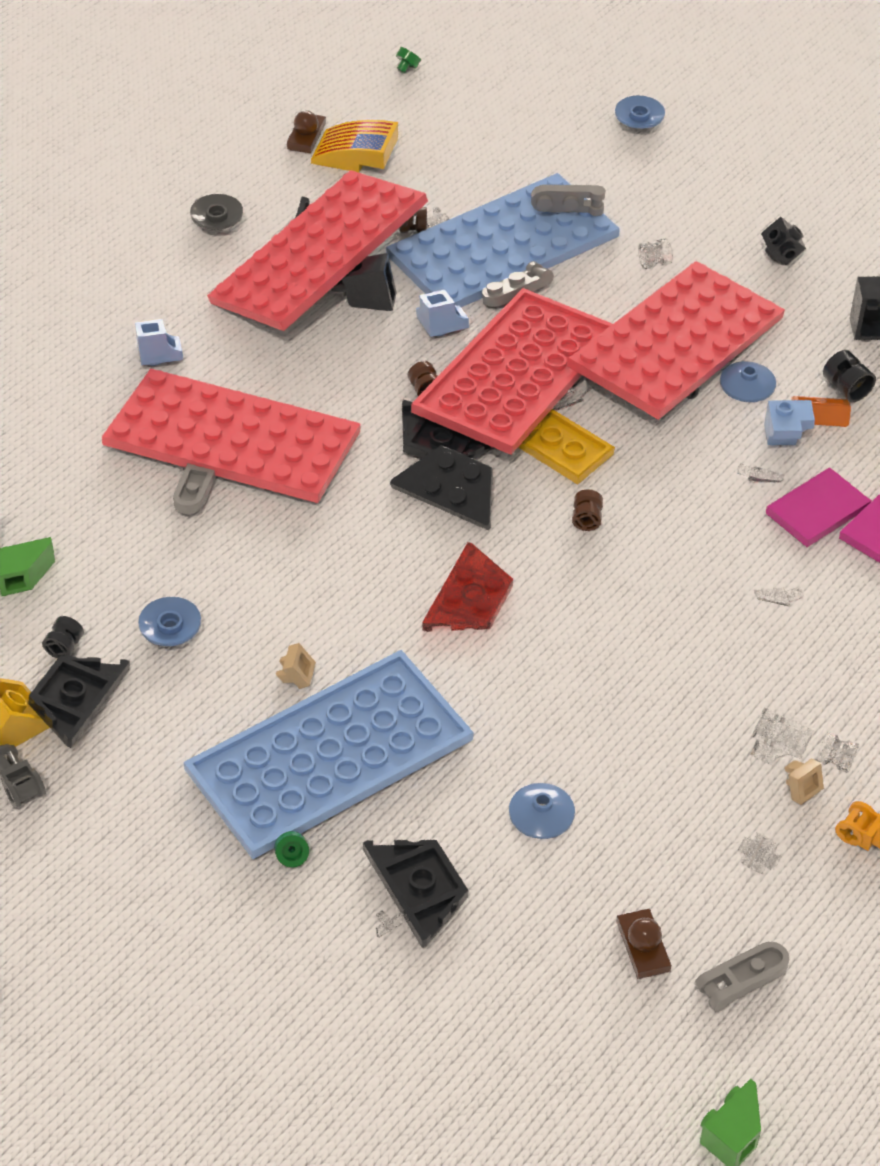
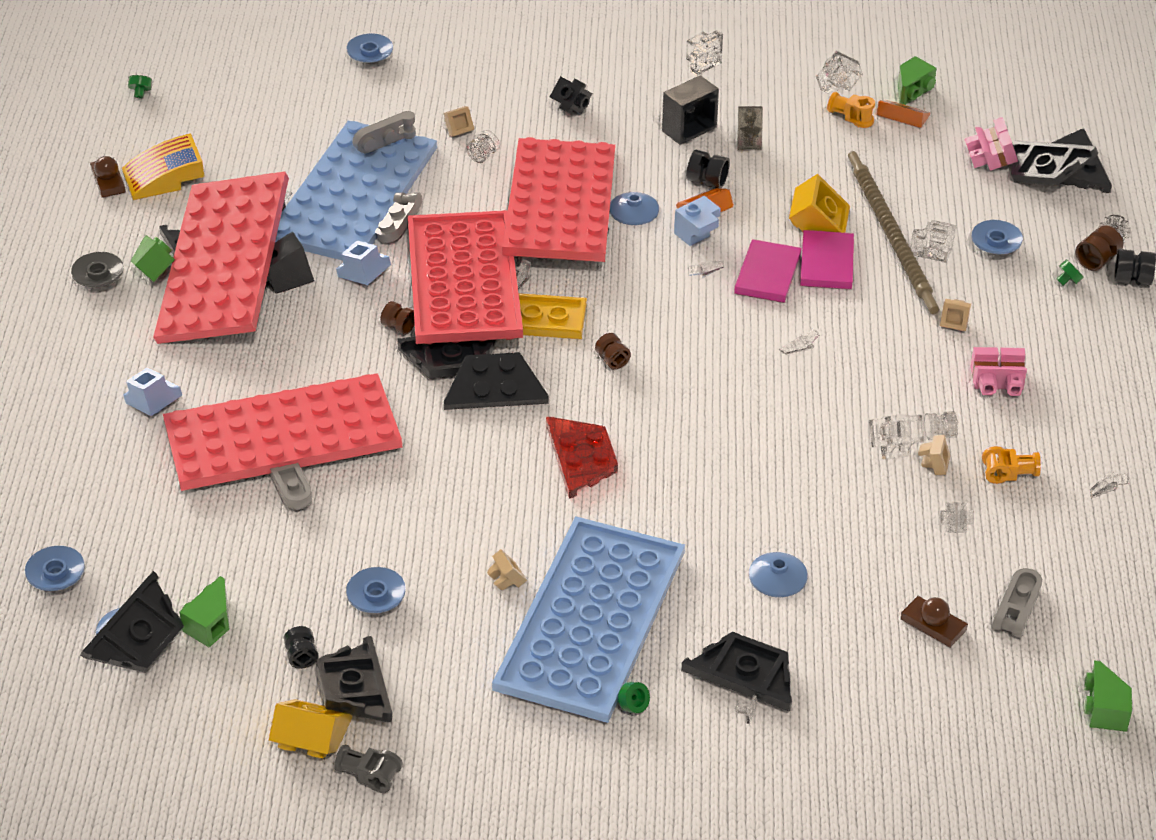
camera: 35 degrees left, 5 degrees down
(266, 222) = (152, 257): none -> bright green slope
(655, 219) = (458, 121): none -> tan tile

